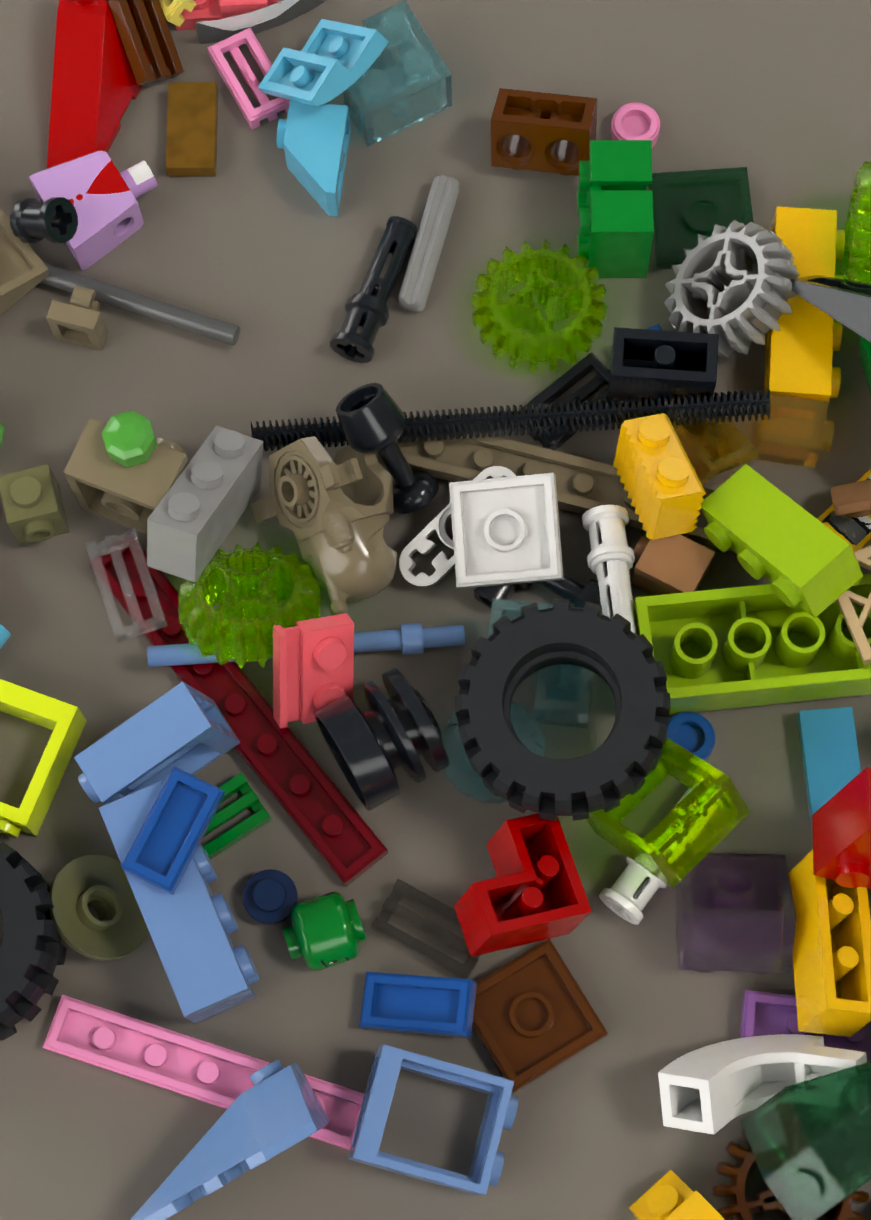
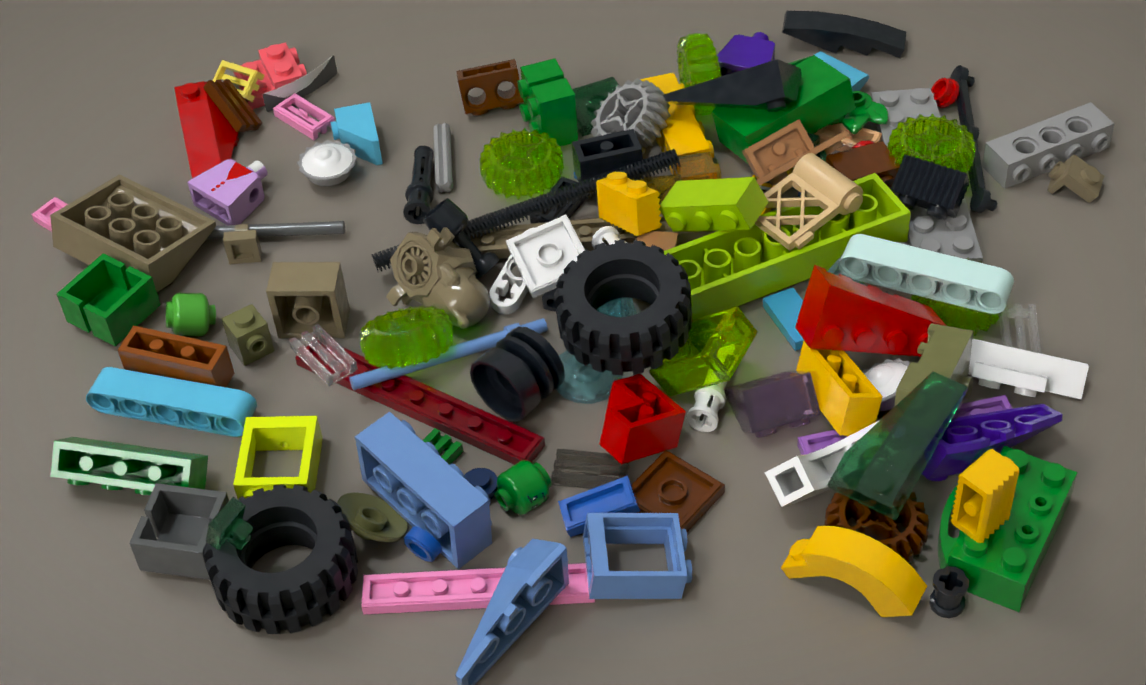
camera: 20 degrees left, 25 degrees down
(50, 220) = (206, 192): black bush -> none
(129, 439) = (302, 260): bright green tile -> none
(153, 976) = (422, 544): none -> blue tile
(173, 830) = (408, 430): blue tile -> none
(174, 730) = (383, 386): medium blue window -> none
(192, 129) = (277, 146): pearl gold tile -> none
(204, 503) = (359, 292): light grey brick -> none
(249, 199) = (327, 162): none -> white piece
(311, 667) = (457, 346): coral plate -> none
(326, 65) = (348, 85): medium azure slope -> none
(403, 82) = (393, 87): clear light blue brick -> none

